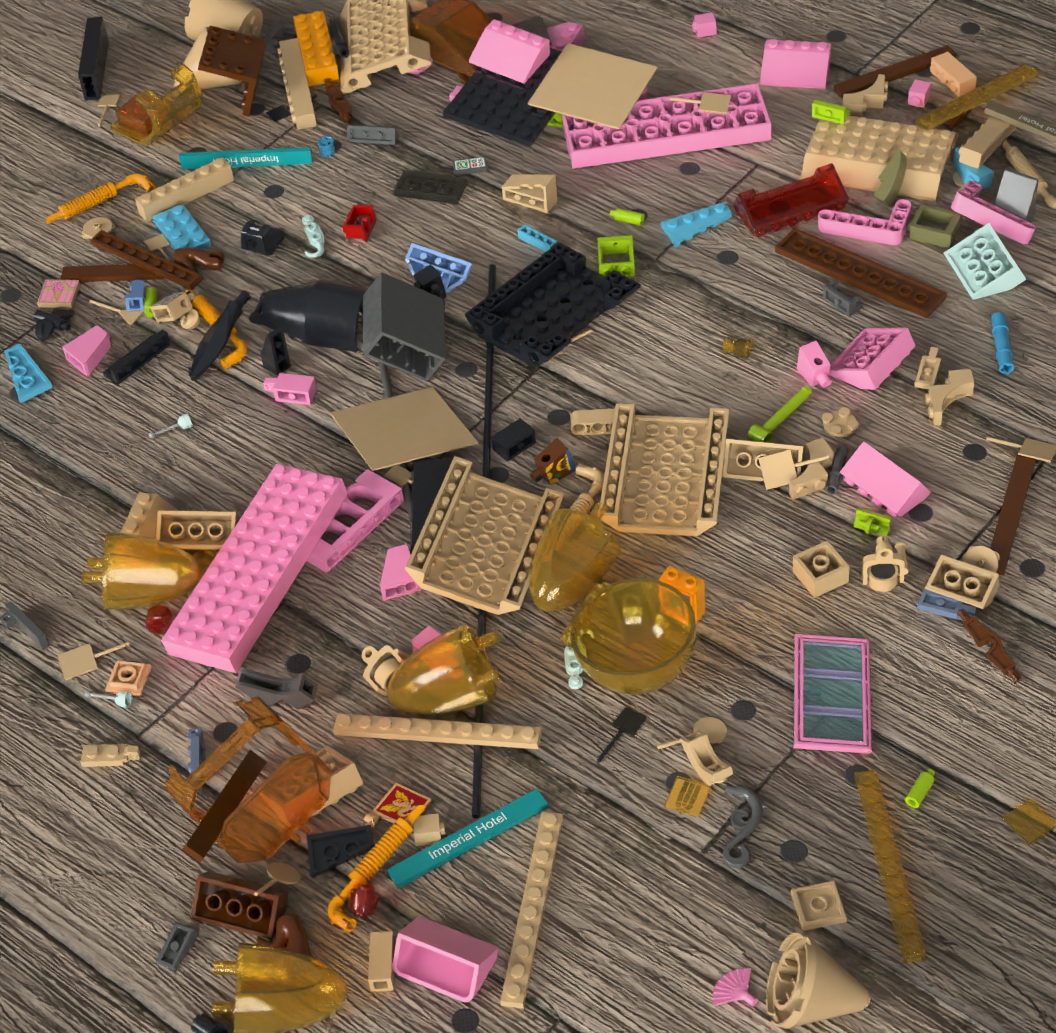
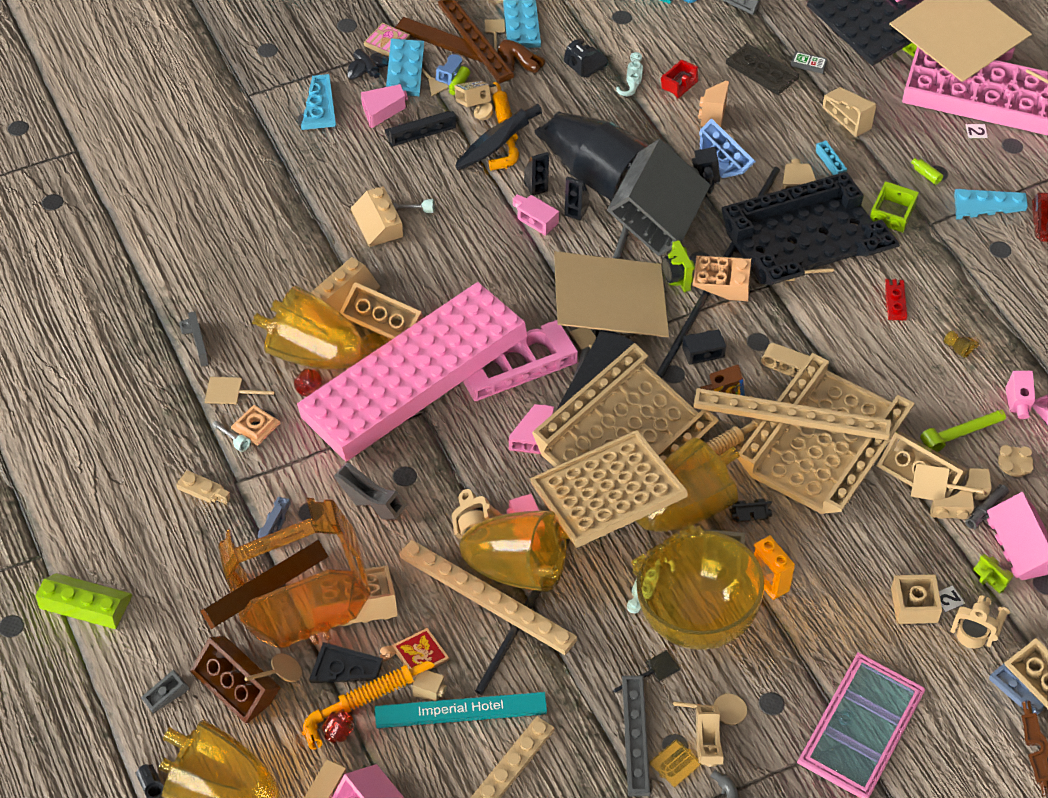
camera: 20 degrees right, 5 degrees up
(48, 903) = (83, 600): none -> lime slope
(91, 307) = (405, 65): none -> medium azure plate
(141, 450) = (377, 217): none -> tan slope
(290, 930) = (262, 727): reddish brown piece -> none
(324, 359) = (576, 198): none -> black slope
(405, 231) = (714, 103): none -> light nougat slope
(453, 381) = (678, 267): none -> lime piece
(498, 373) = (723, 276): none -> light nougat slope
(502, 585) = (608, 488): none -> tan plate
(514, 262) = (797, 174): none -> tan torso
(626, 561) = (758, 508): none -> black hinge
(627, 460) = (792, 414): none -> tan plate
(640, 789) = (635, 736): none -> dark grey tile
(651, 168) = (976, 131): none -> white sticker
(661, 334) = (895, 300): none -> red hinge
(849, 557) = (950, 598): none -> white sticker

